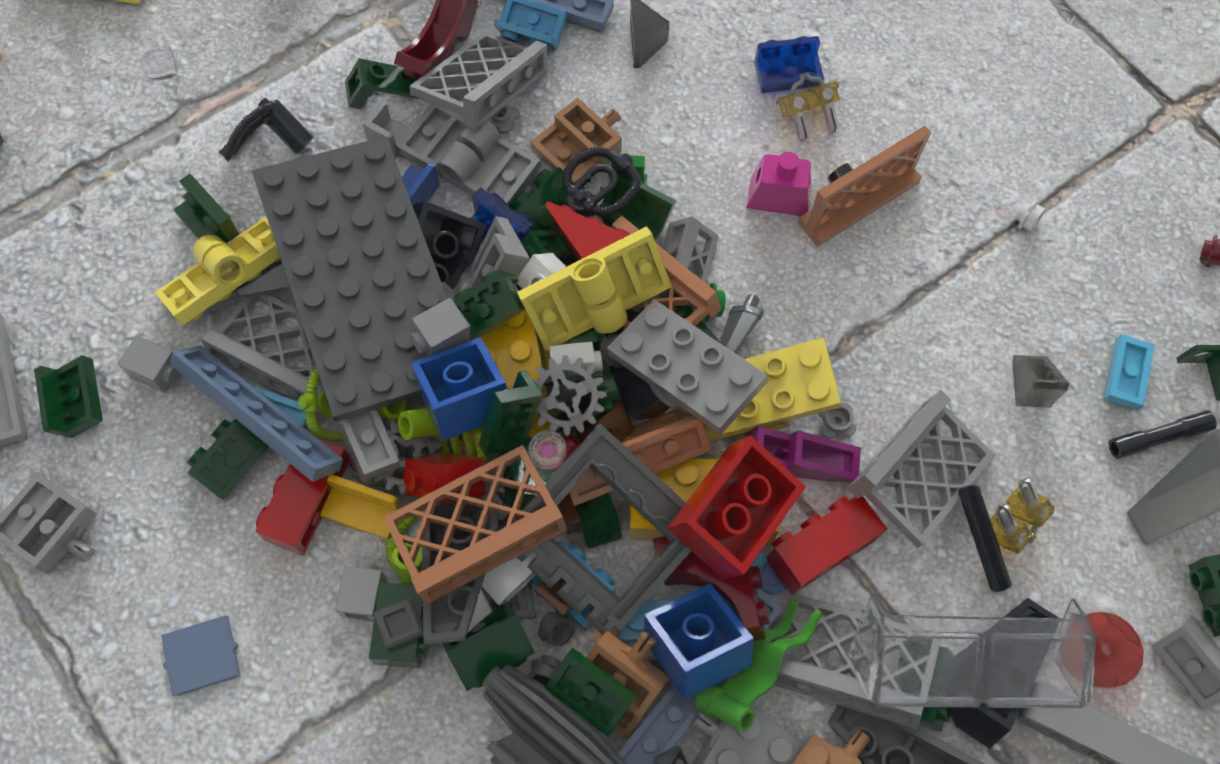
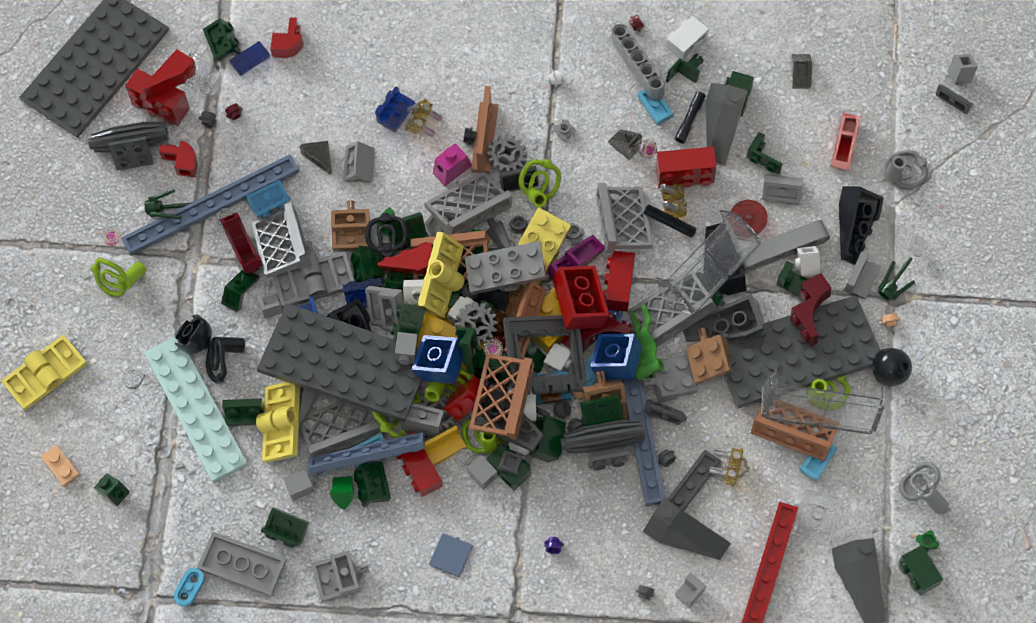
camera: 45 degrees left, 0 degrees up
(180, 144) = (196, 410): none -> light aqua plate
(185, 424) = (342, 491): none -> green tile
(265, 79) = (194, 335): none -> black cylinder
(627, 556) = (558, 358): none -> white brick
(679, 84) = (358, 162): none -> light grey panel
(742, 271) = (477, 213): none -> light grey fence
(779, 330) = (518, 220): none -> dark grey plate
(841, 324) = (533, 194): none -> lime piece
(844, 286) = (510, 179): none -> slope
(878, 244) = (510, 147): none -> light grey gear
(965, 291) = (563, 135): none -> light grey plate
(1058, 416) = (648, 149): none -> clear tile
(1089, 491) = (686, 167): none -> red brick
(1165, 298) = (638, 61): none -> light grey beam

